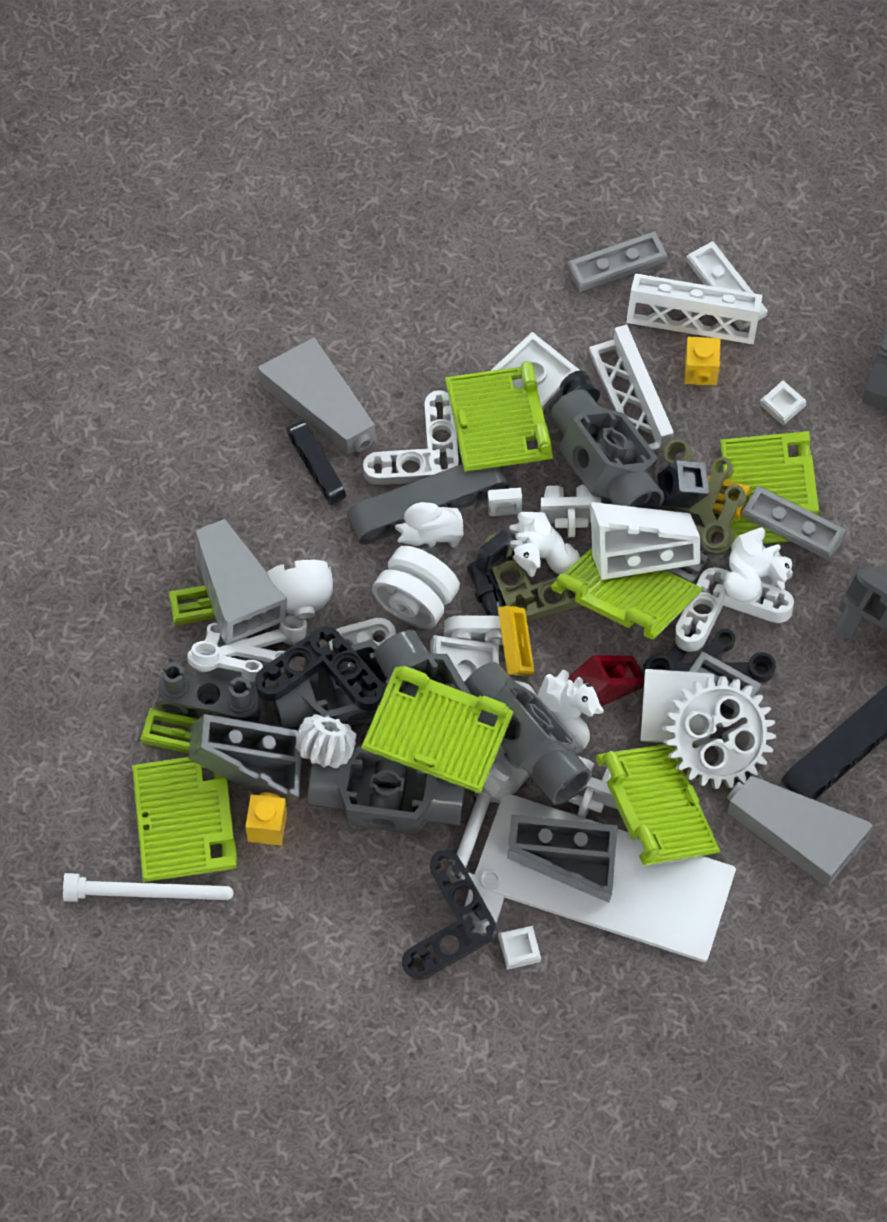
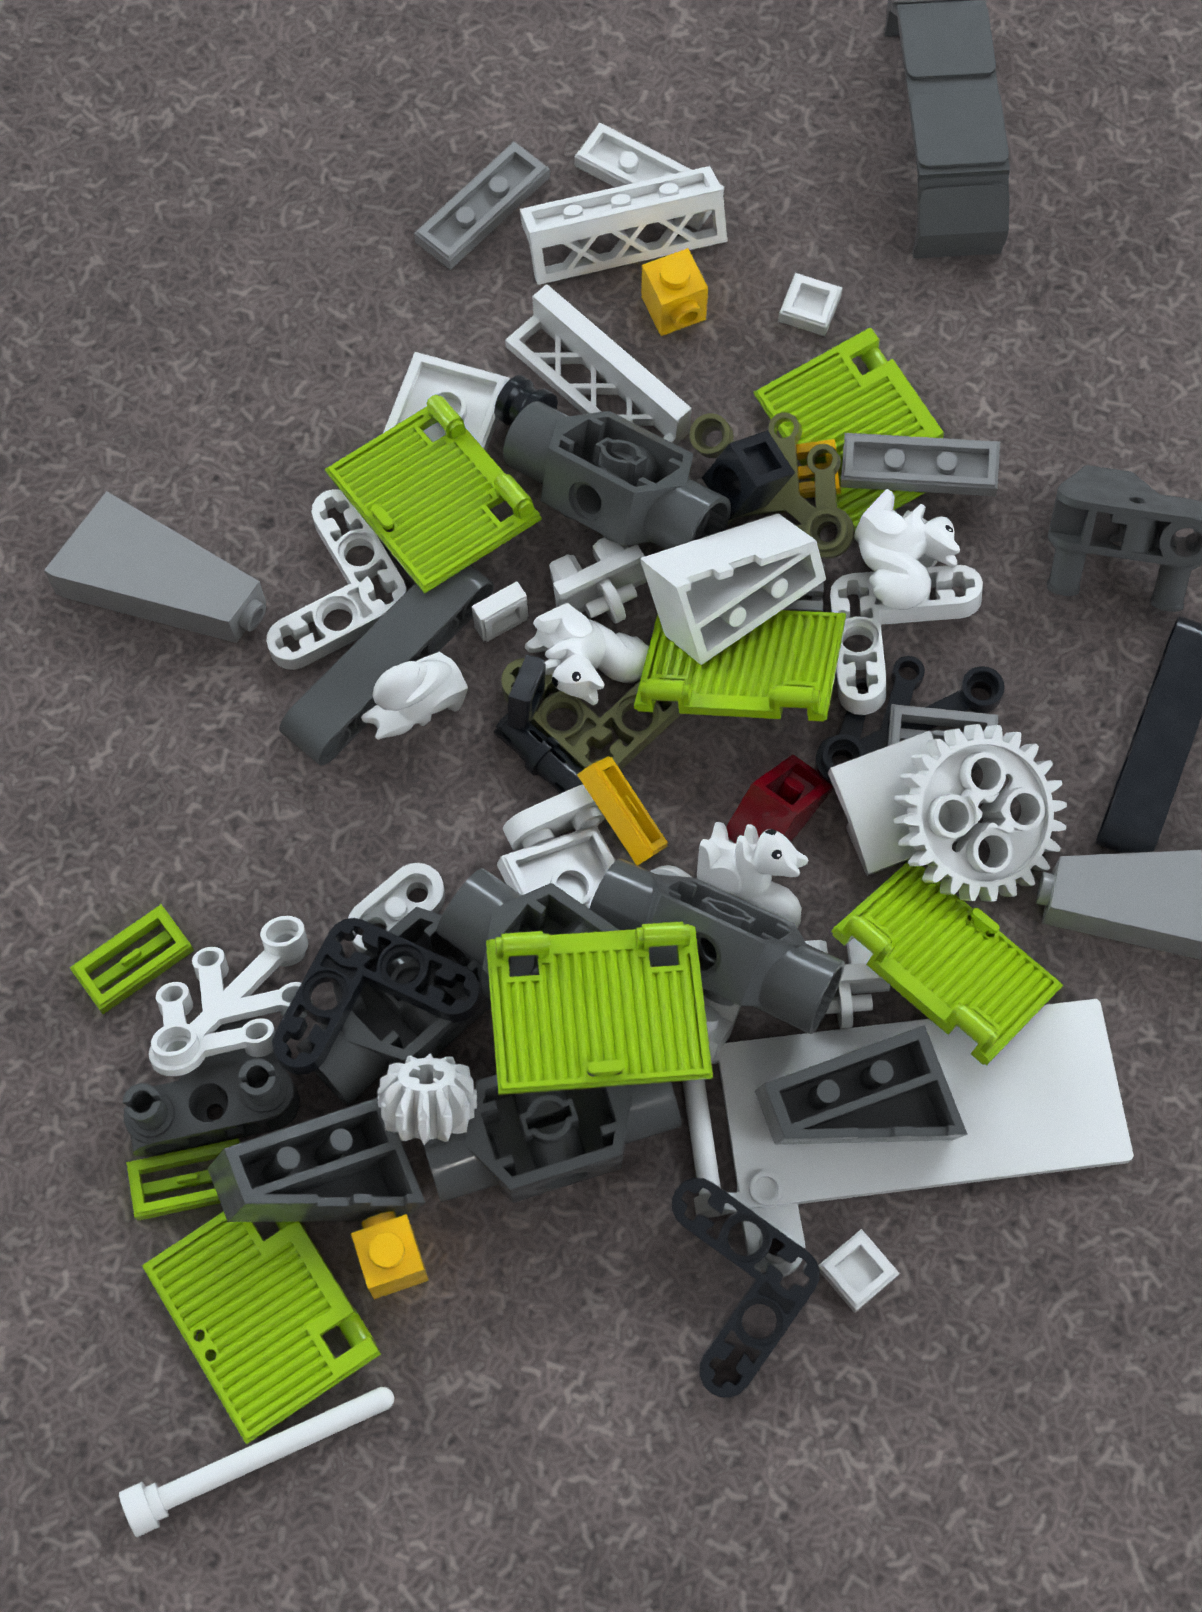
camera: 25 degrees left, 5 degrees up
(236, 584) = (170, 912): light grey slope -> none
(305, 586) = (269, 876): white cylinder -> none
(316, 462) = (198, 674): black beam -> none
(415, 587) = (439, 796): white wheel -> none

